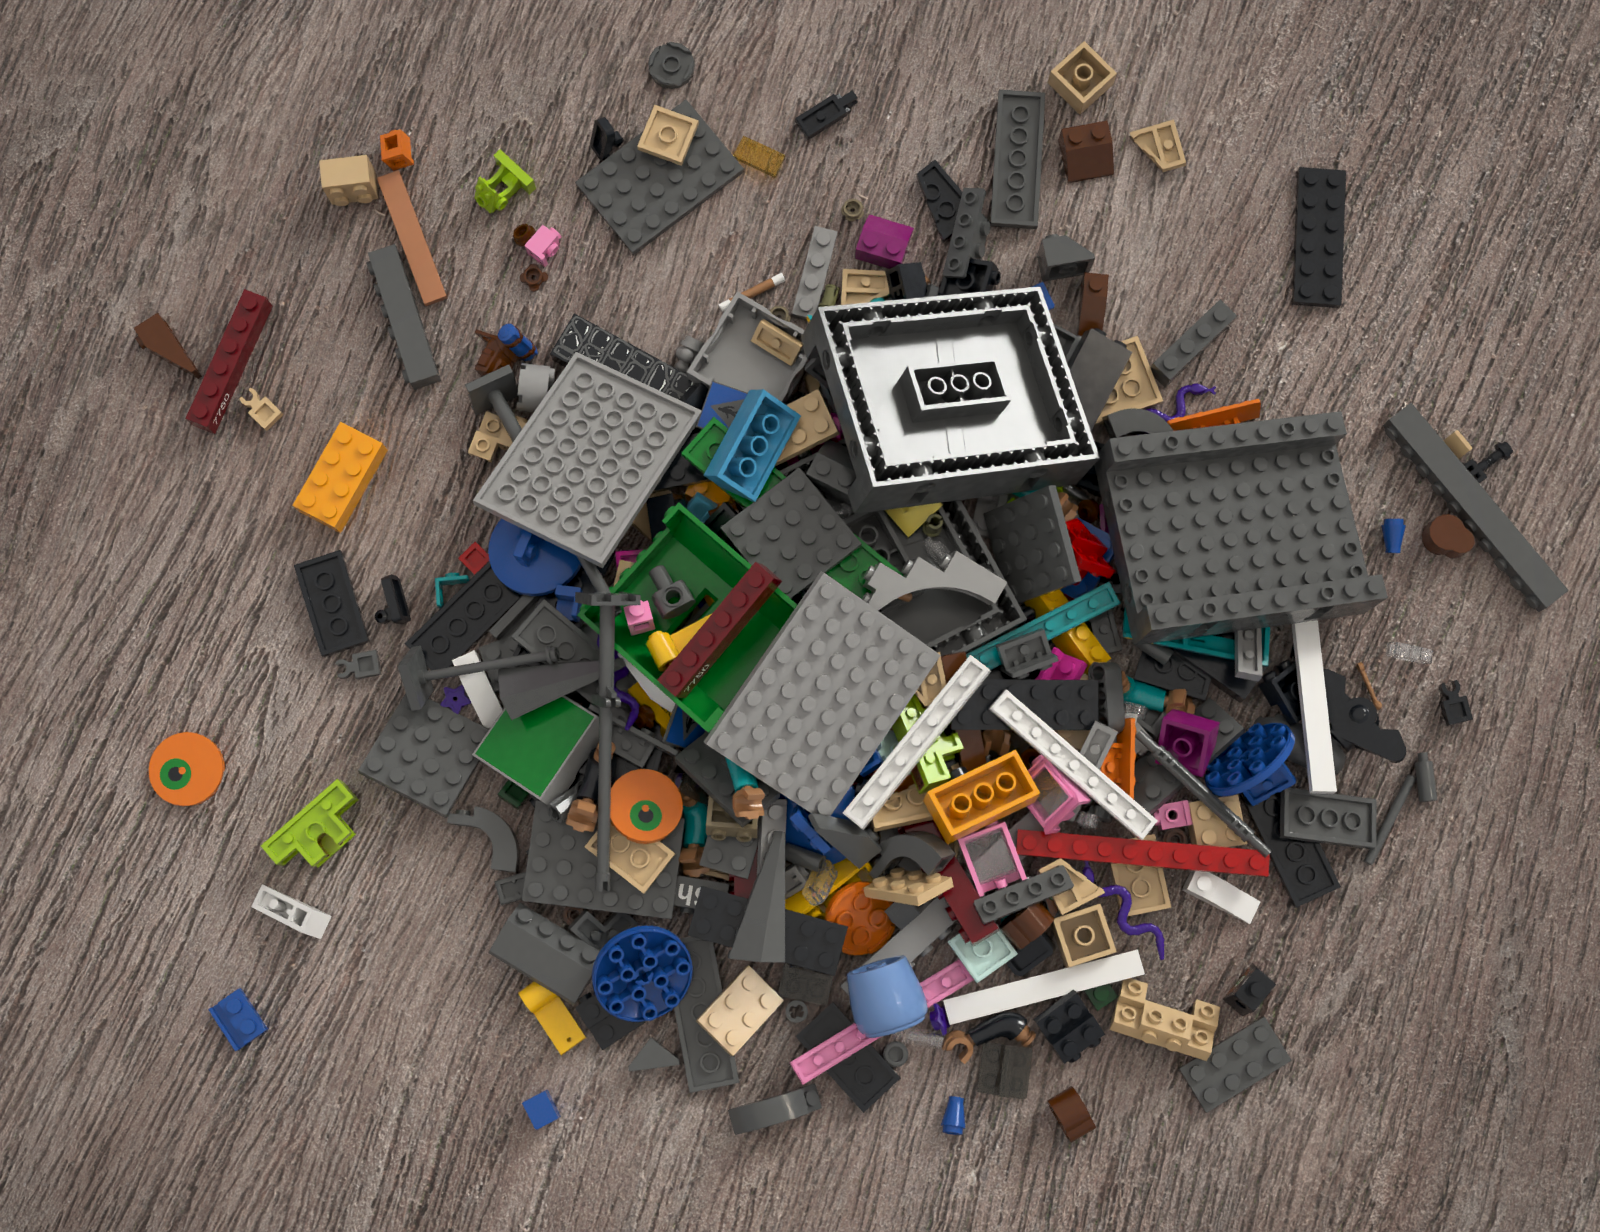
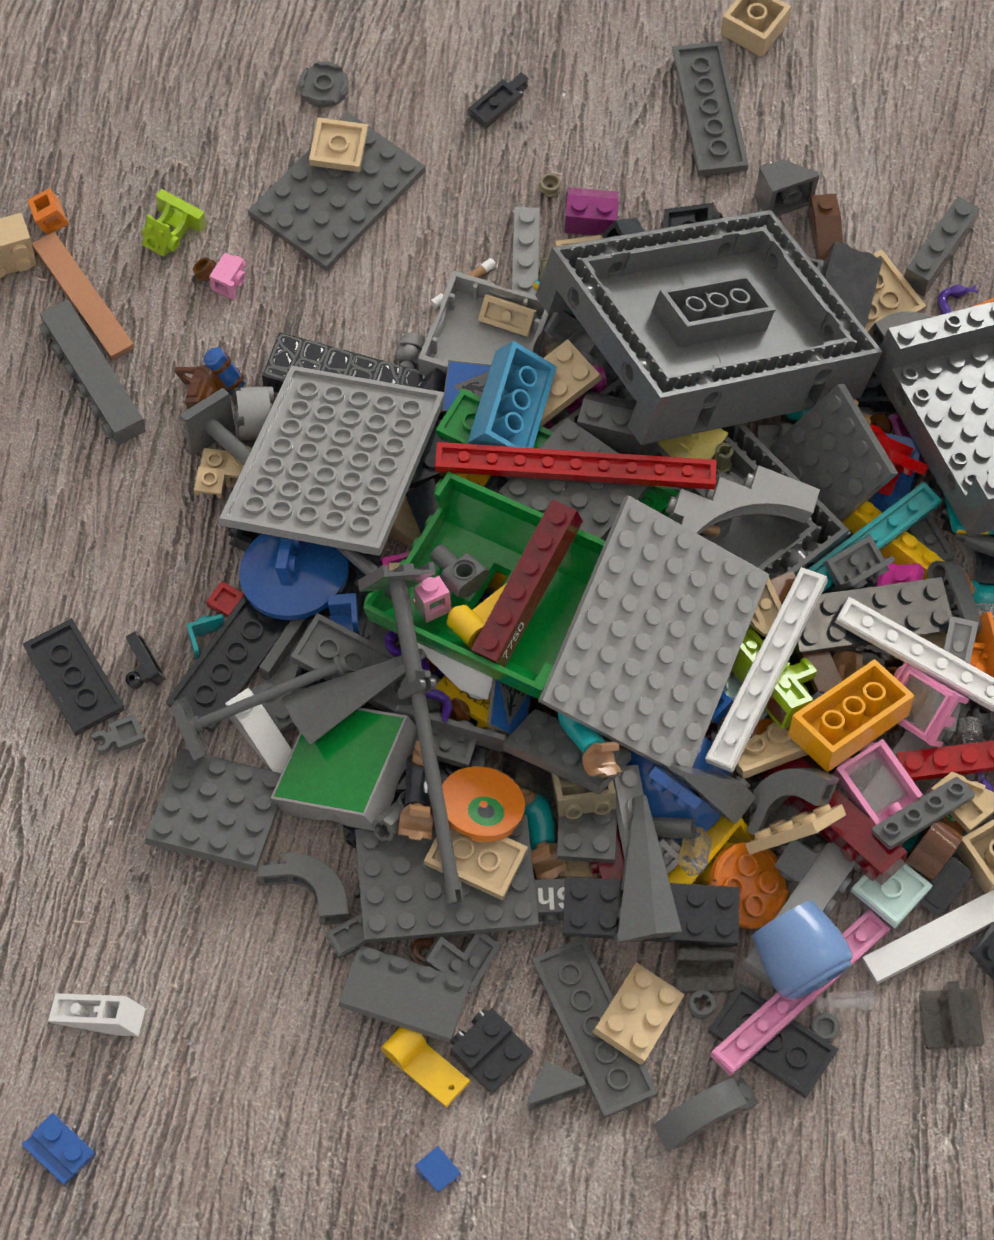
camera: 15 degrees left, 15 degrees down
(316, 829) = (108, 916): lime piece -> none
(340, 477) = (56, 544): light orange brick -> none
(462, 700) = (237, 742): dark purple plate -> none
(513, 794) = (326, 834): dark green plate -> none
(533, 270) = (221, 304): reddish brown plate -> none
(604, 138) = (270, 160): black piece -> none
(642, 973) = (520, 987): blue bracket -> none
(759, 156) = (438, 153): clear yellow tile -> none
(792, 520) = (575, 465): none -> red plate
(938, 1019) = (863, 977): dark purple plate -> none
(941, 197) = (645, 159): black wing -> none
(954, 1119) = (909, 1082): blue cone -> none
(968, 234) = (678, 183): dark grey bracket -> none
(1006, 1025) = (937, 968): piece -> none
(1087, 151) = (779, 87): reddish brown slope -> none
(1161, 145) = (853, 69): tan wing -> none

